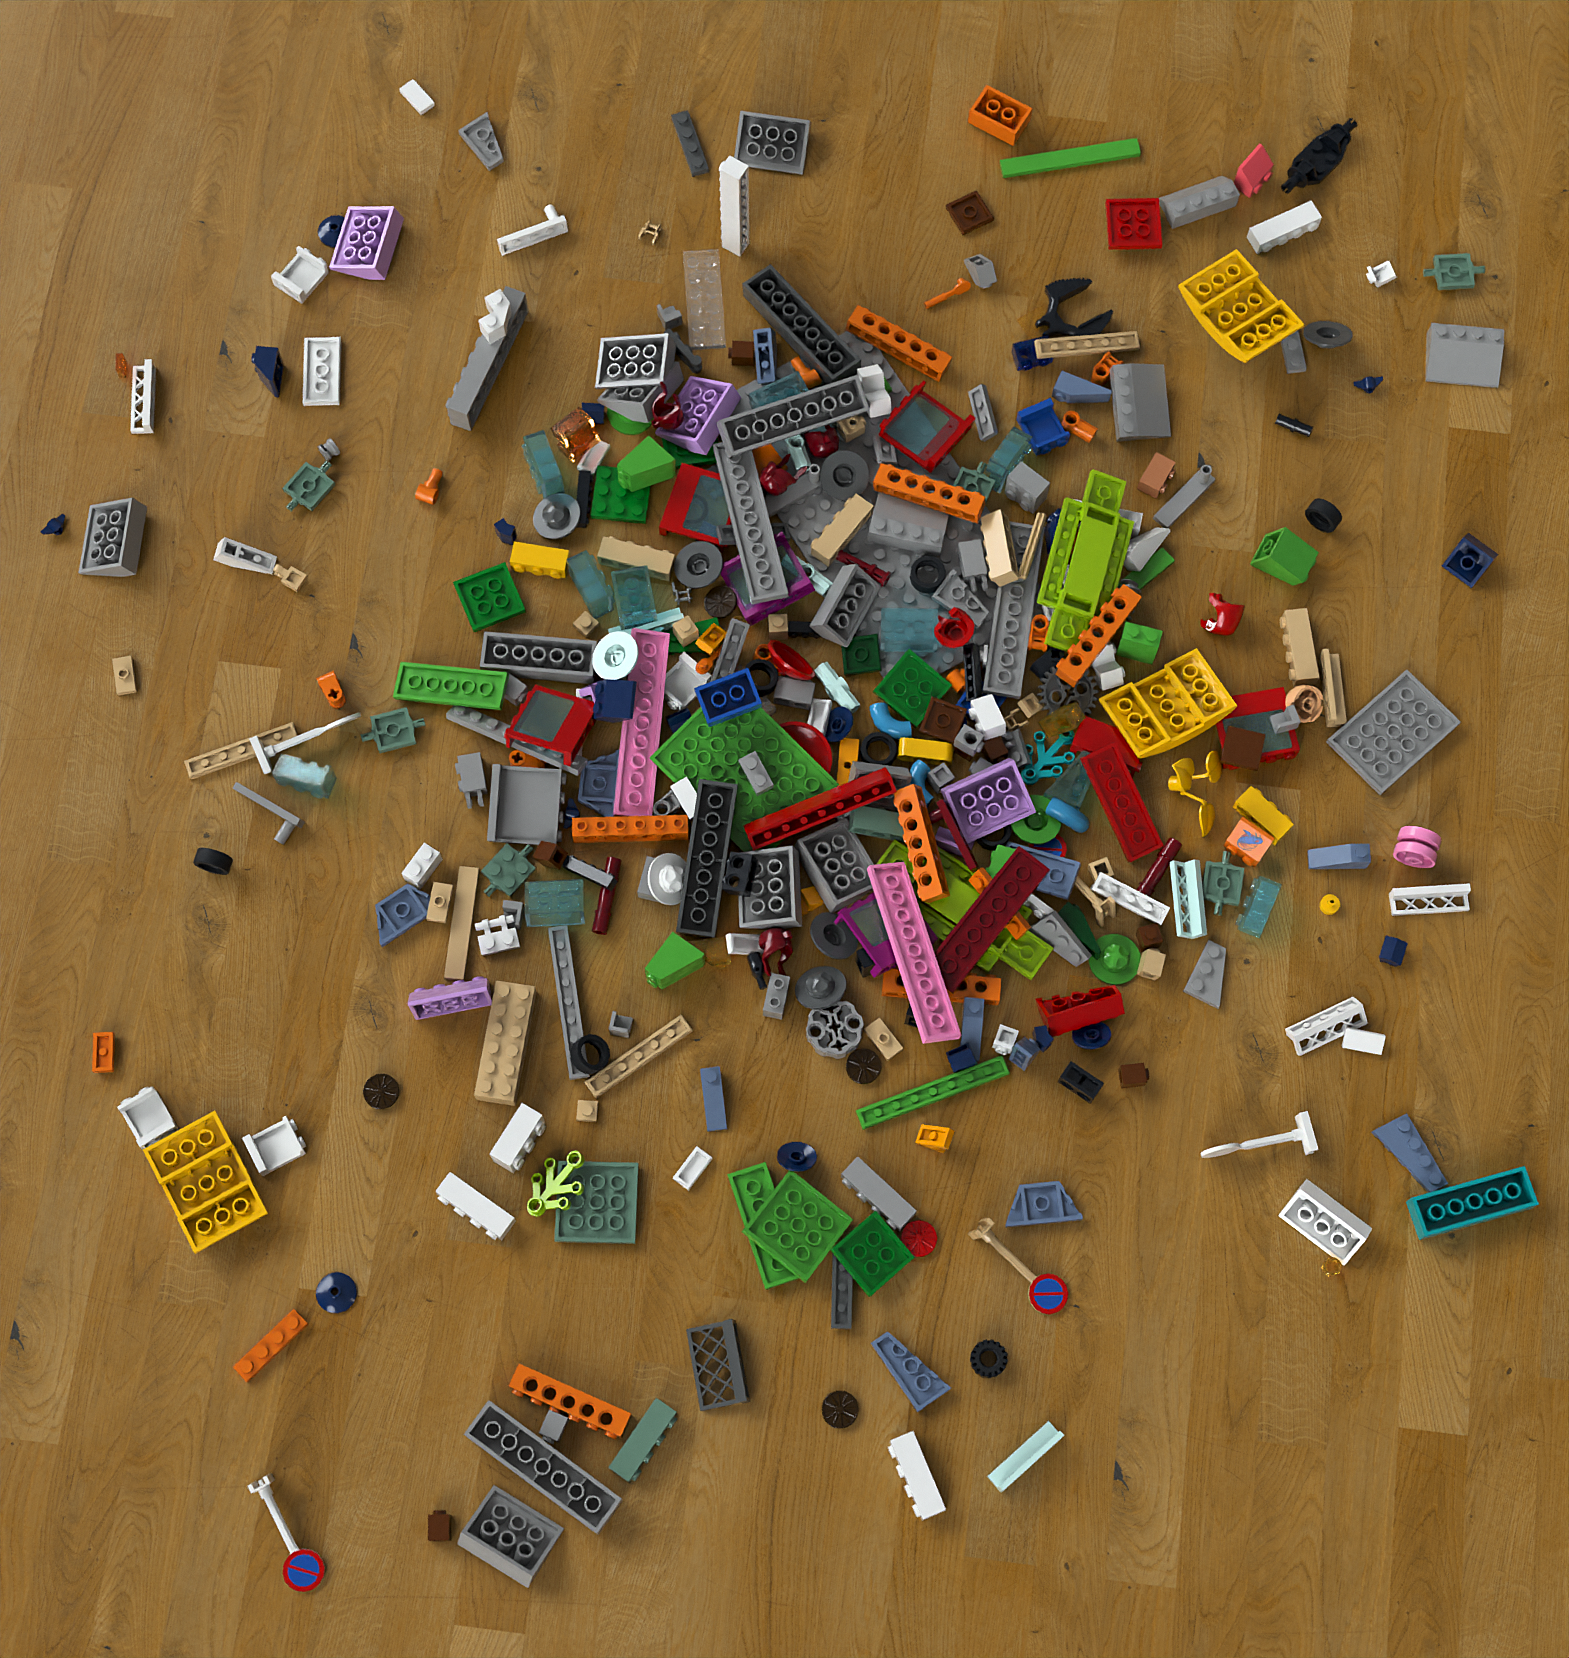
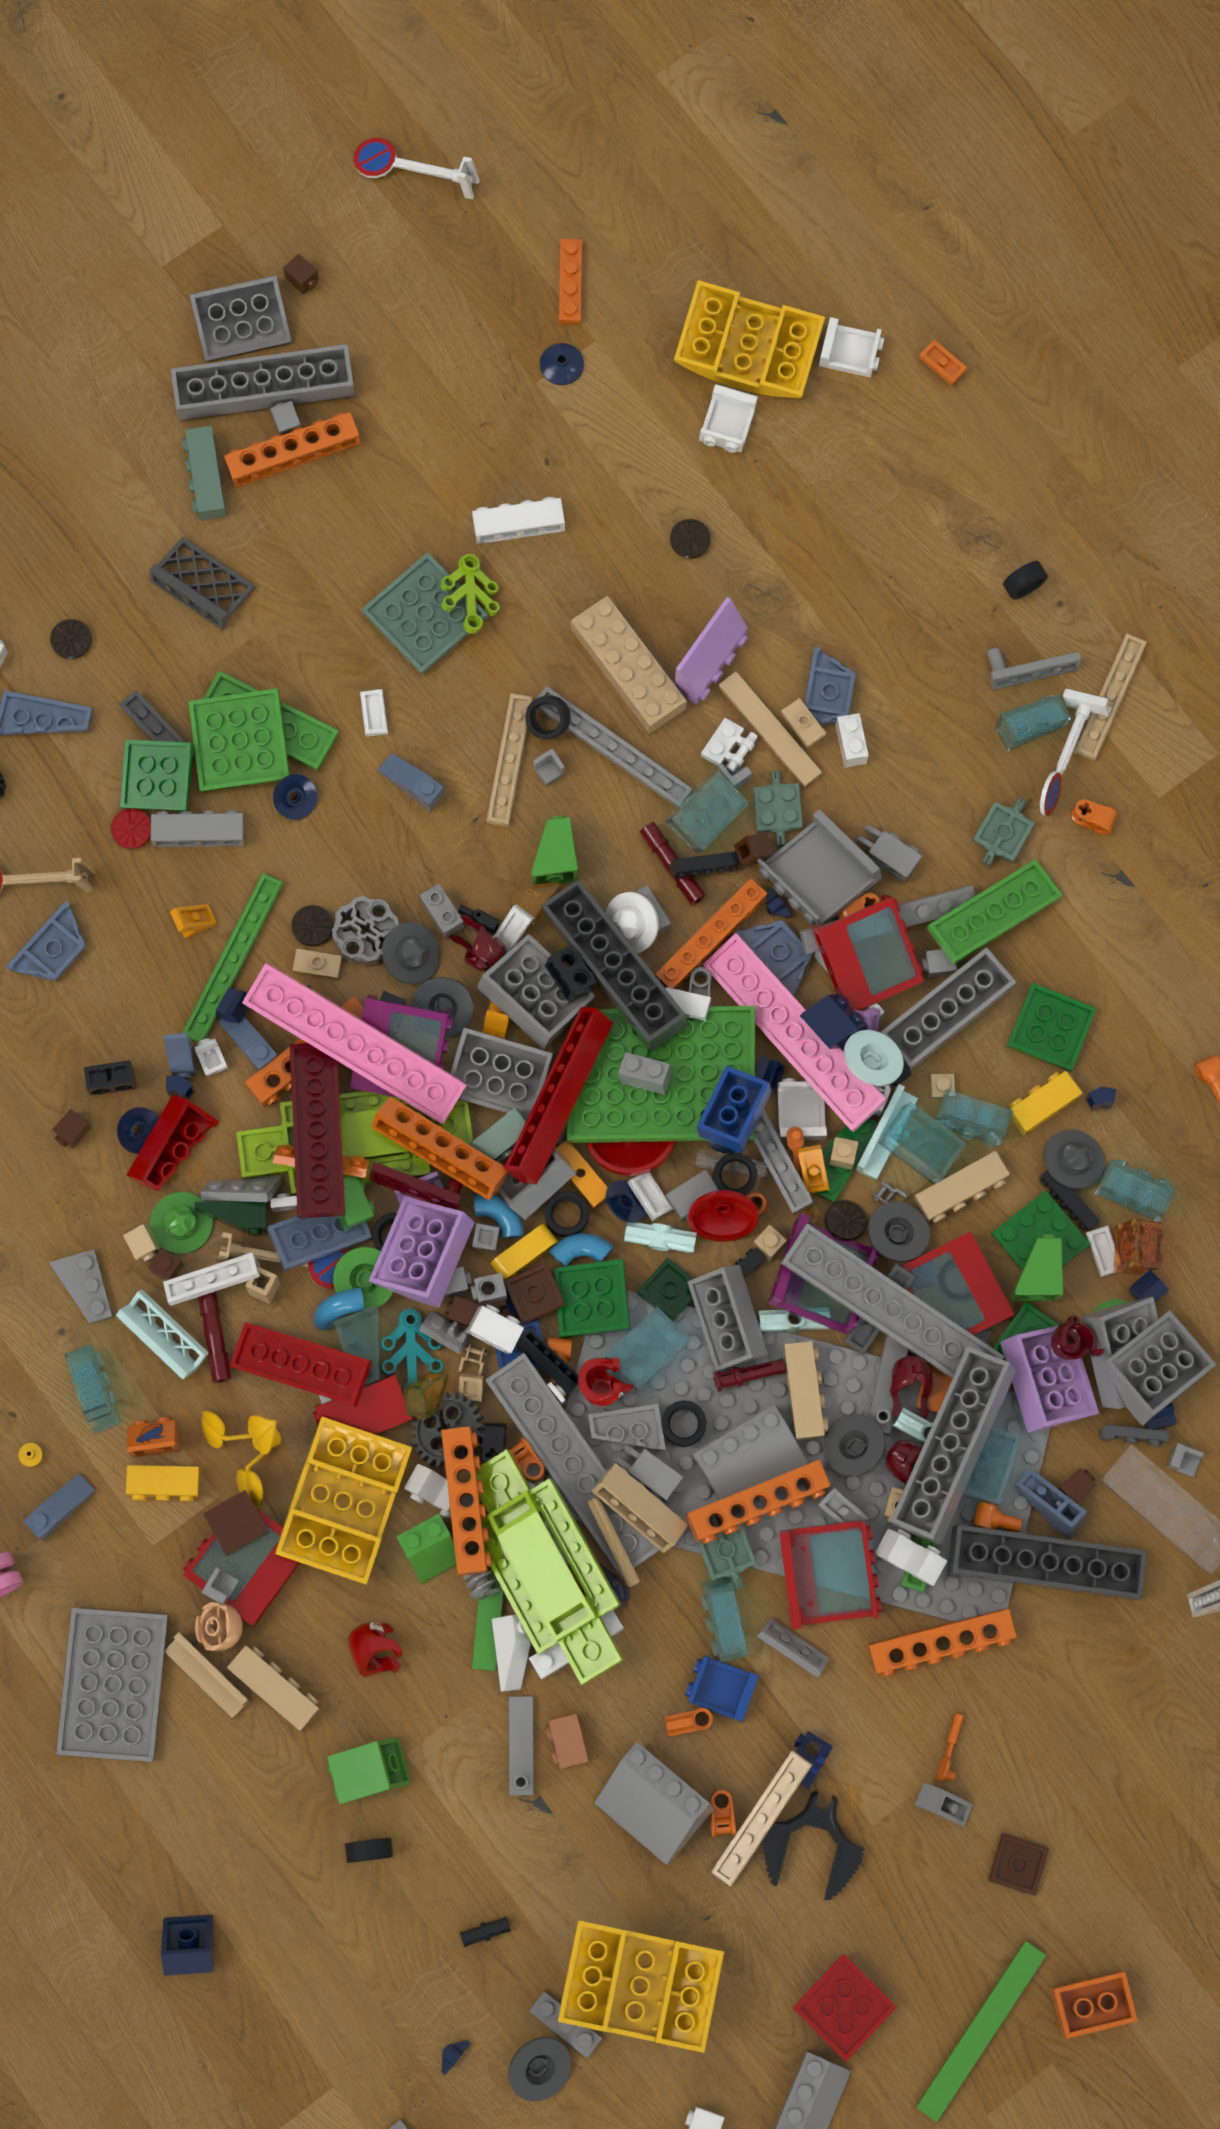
camera: 135 degrees right, 5 degrees up
(518, 1138) = (535, 597): white brick -> none
(587, 1111) = (506, 677): tan plate -> none
(1026, 487) = (675, 1600): light grey brick -> none
(1078, 390) = (731, 1758): sand blue slope -> none
(1222, 883) = (145, 1381): sand green plate -> none

